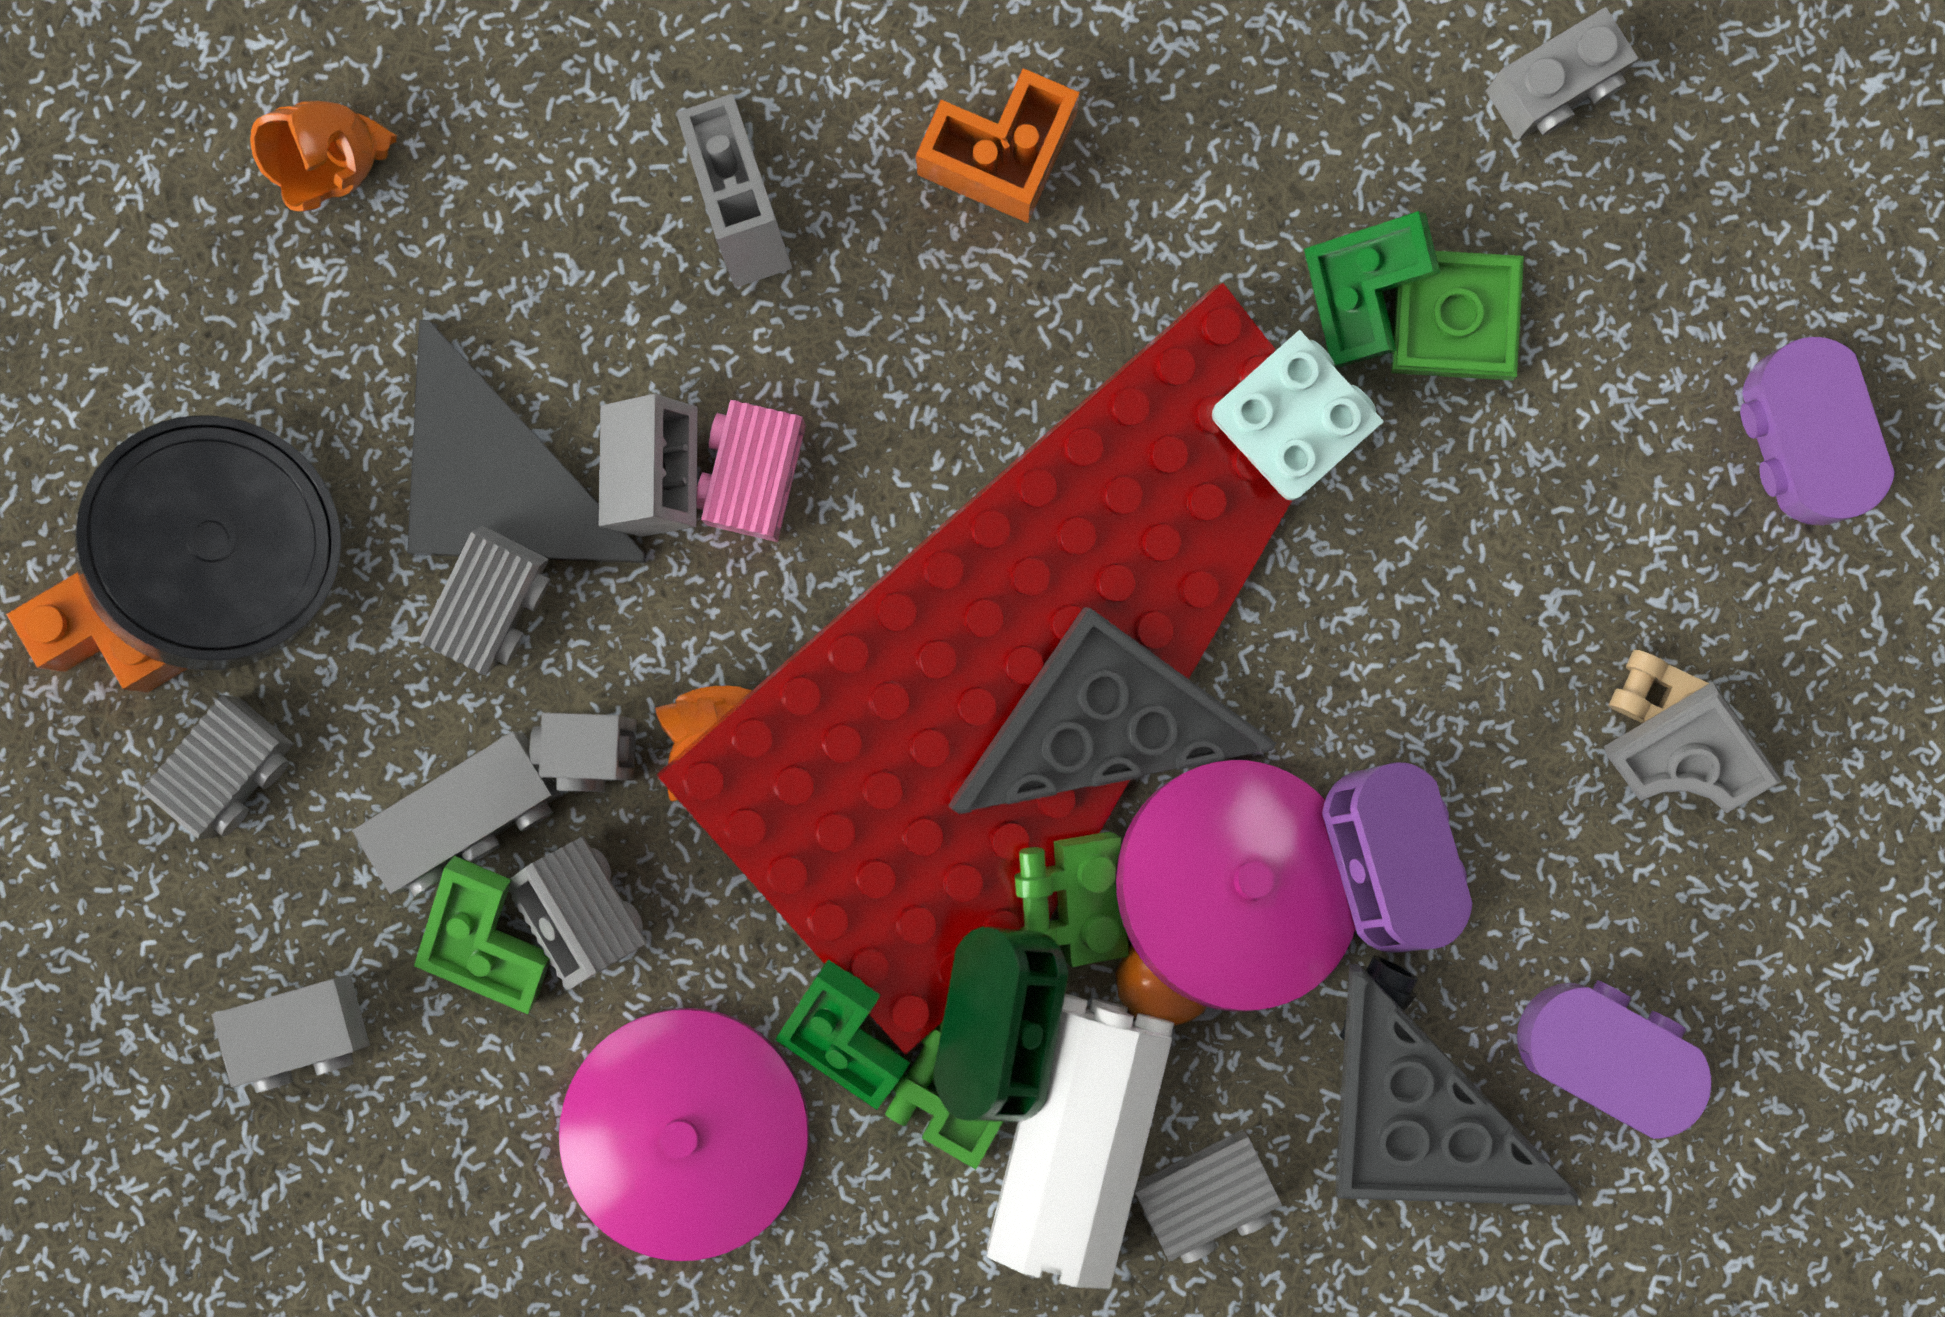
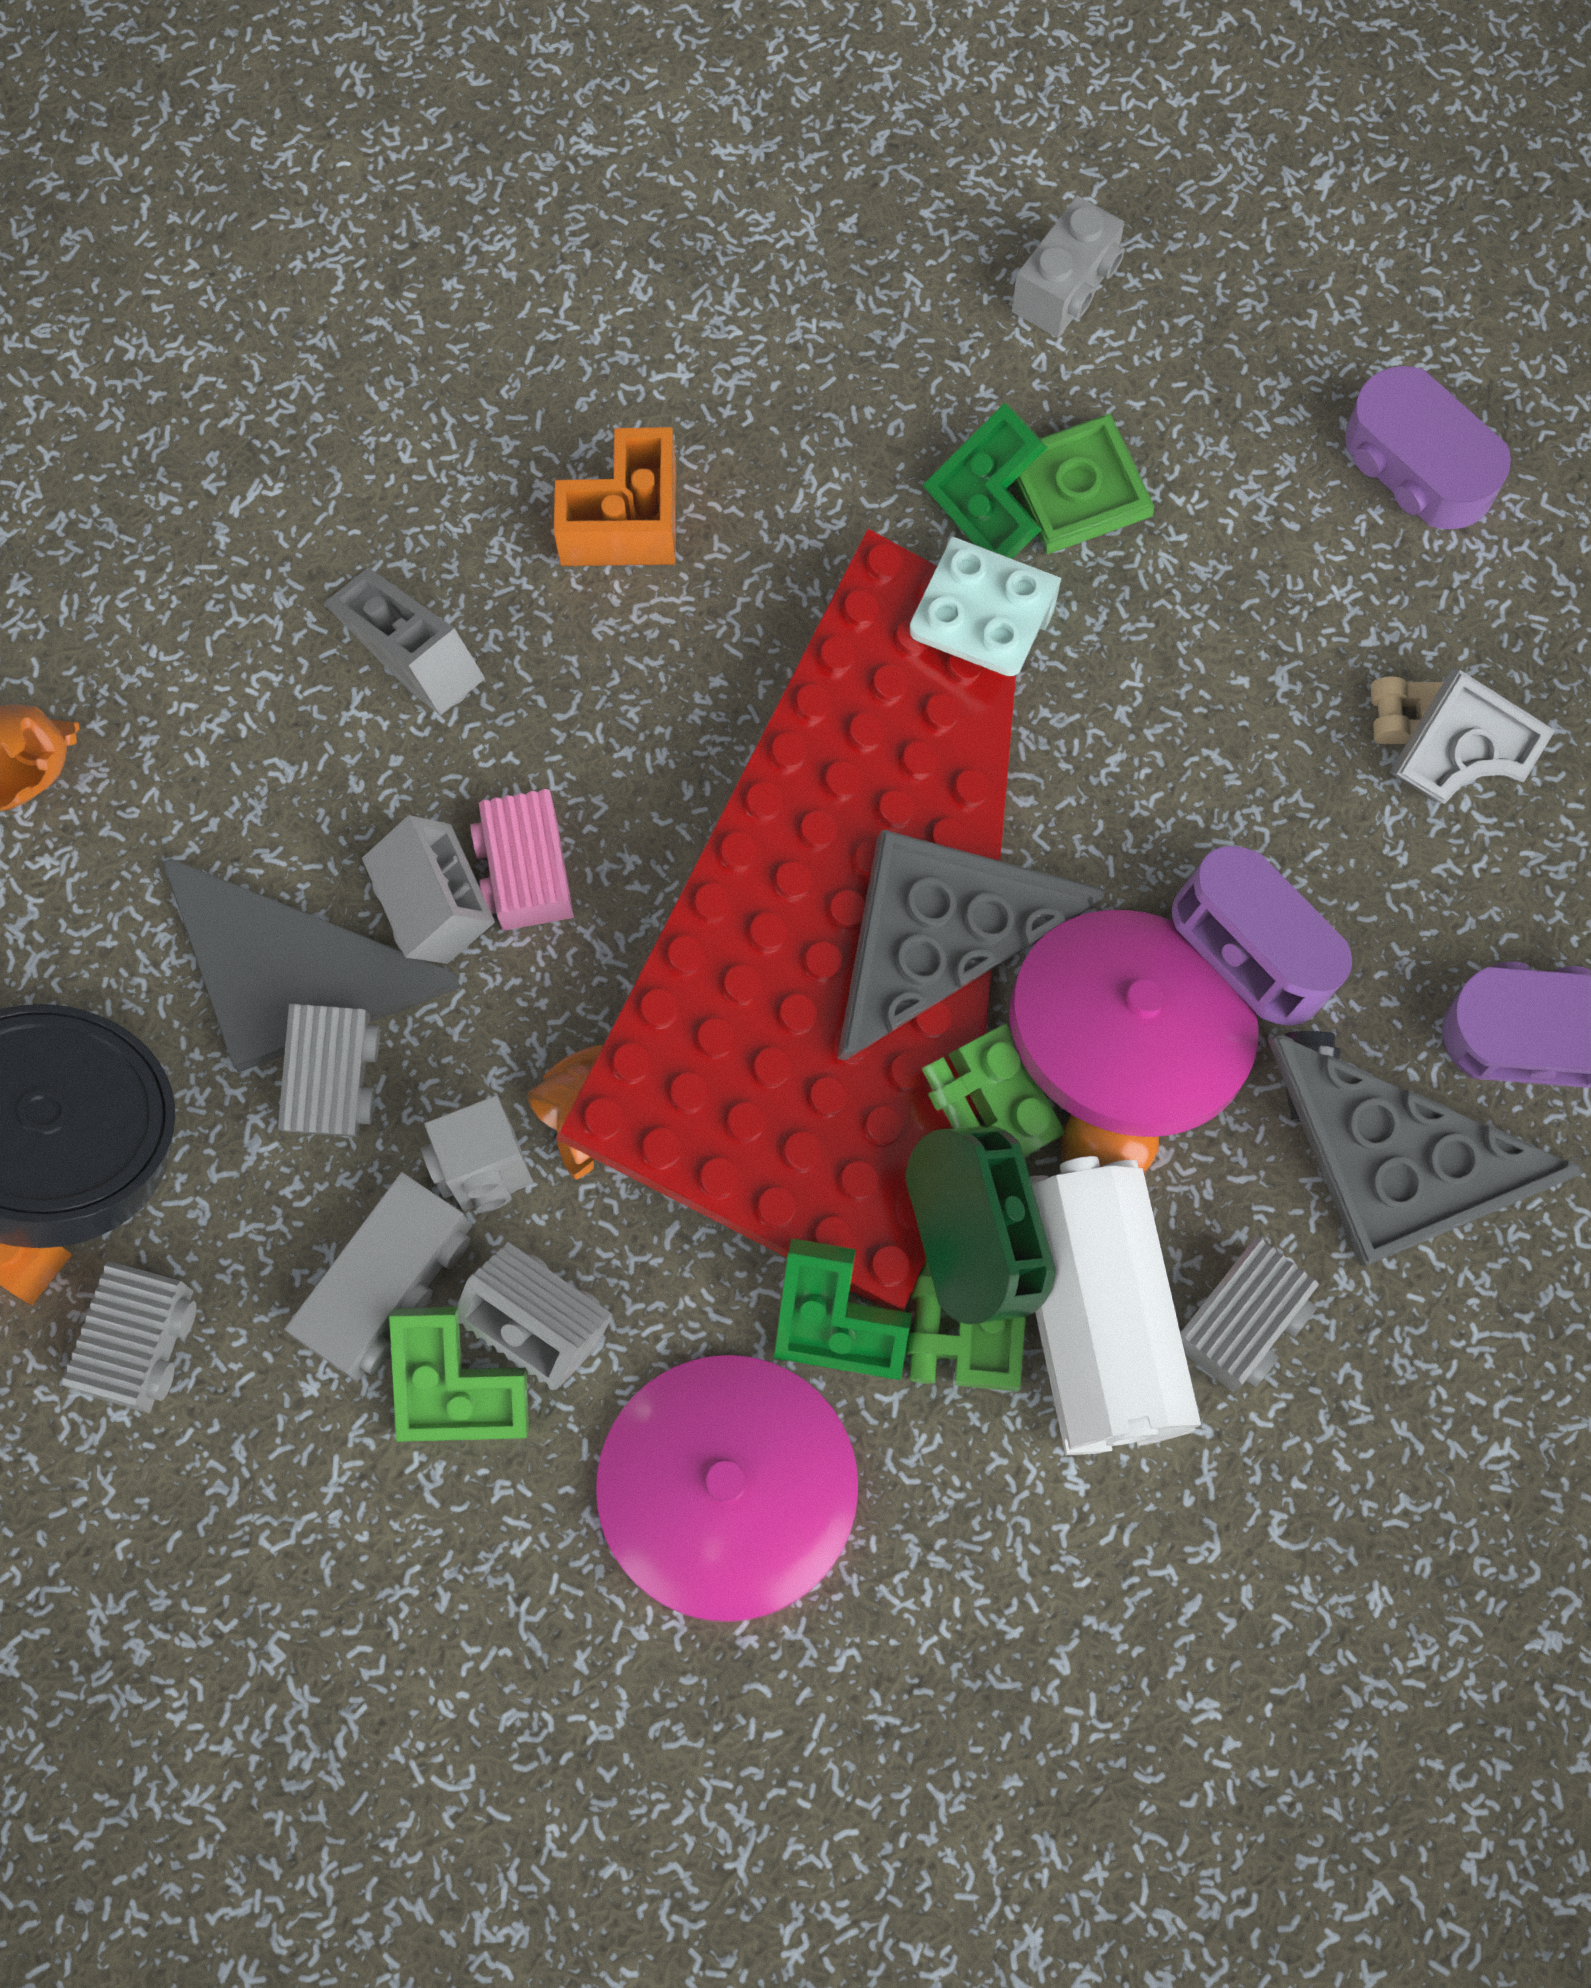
camera: 25 degrees left, 15 degrees down
(291, 1031) = (301, 1554): light grey brick -> none

